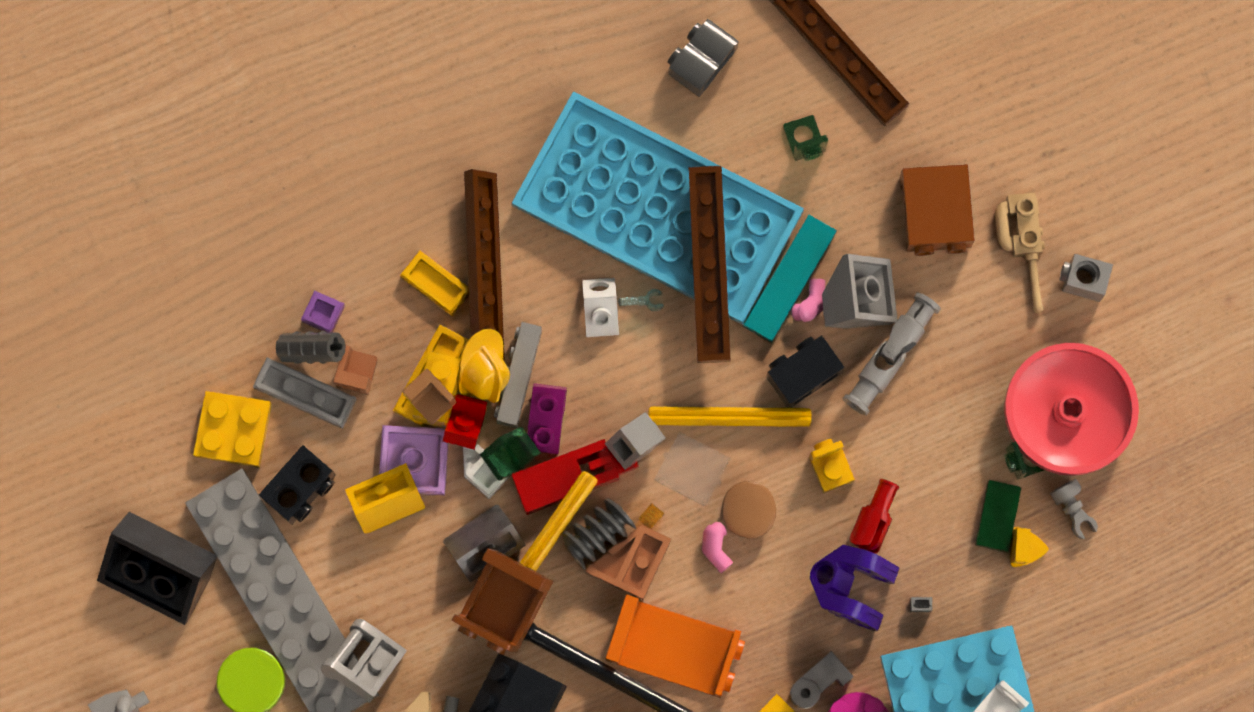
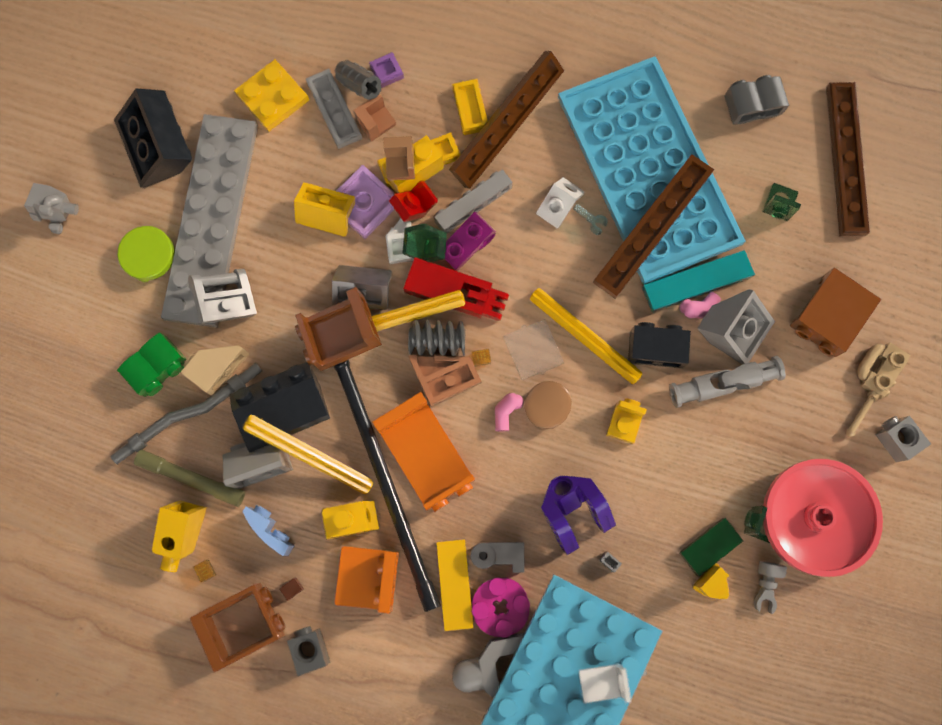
camera: 40 degrees right, 0 degrees up
(290, 480) = (278, 150): black brick -> none
(483, 367) = (454, 173): yellow piece -> none
(635, 440) = (511, 299): light grey brick -> none
(874, 518) = (626, 479): red arm -> none

